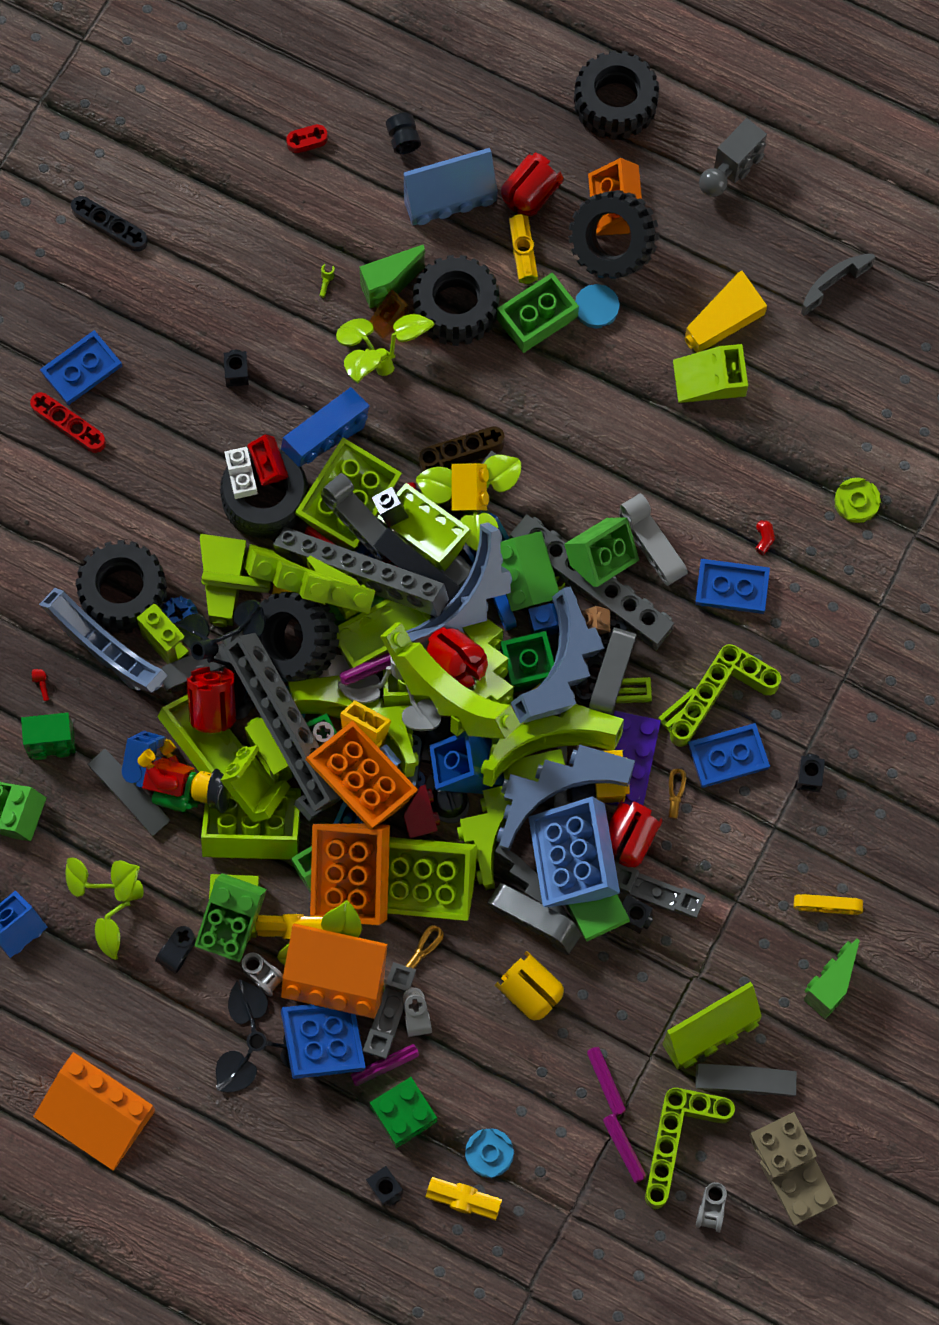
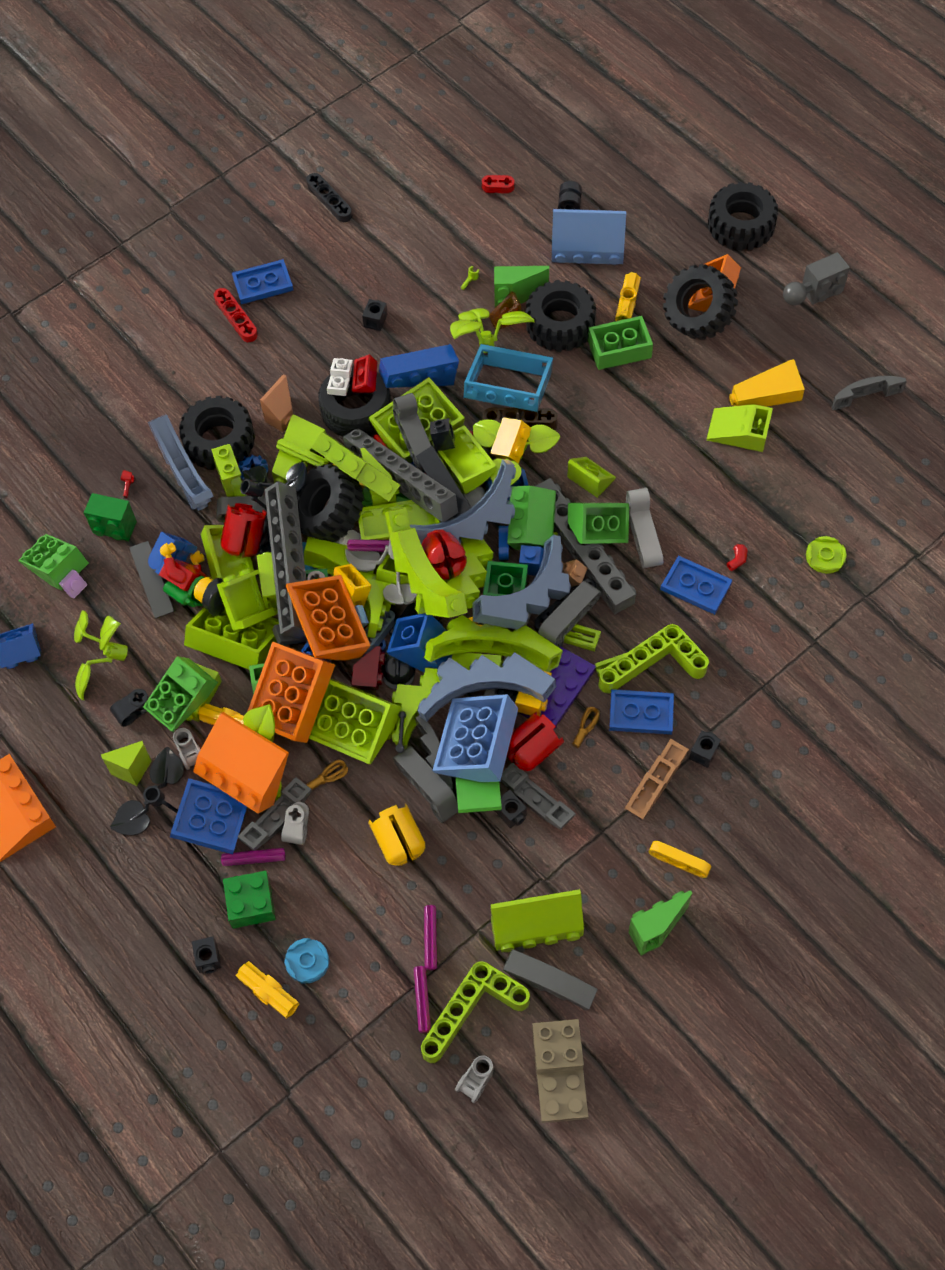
camera: 25 degrees right, 10 degrees down
(41, 829) = (73, 584): none -> lavender plate
(179, 530) = (277, 405): none -> nougat slope
(207, 1014) = (128, 762): none -> lime slope
(429, 375) = (509, 360): none -> dark azure window
(493, 890) = (400, 748): none -> black hinge
(530, 185) = (651, 256): red cylinder -> none
(566, 492) = (589, 475): none -> lime slope
(597, 306) = (669, 354): dark azure tile -> none
(772, 825) = (657, 779): none -> medium nougat slope

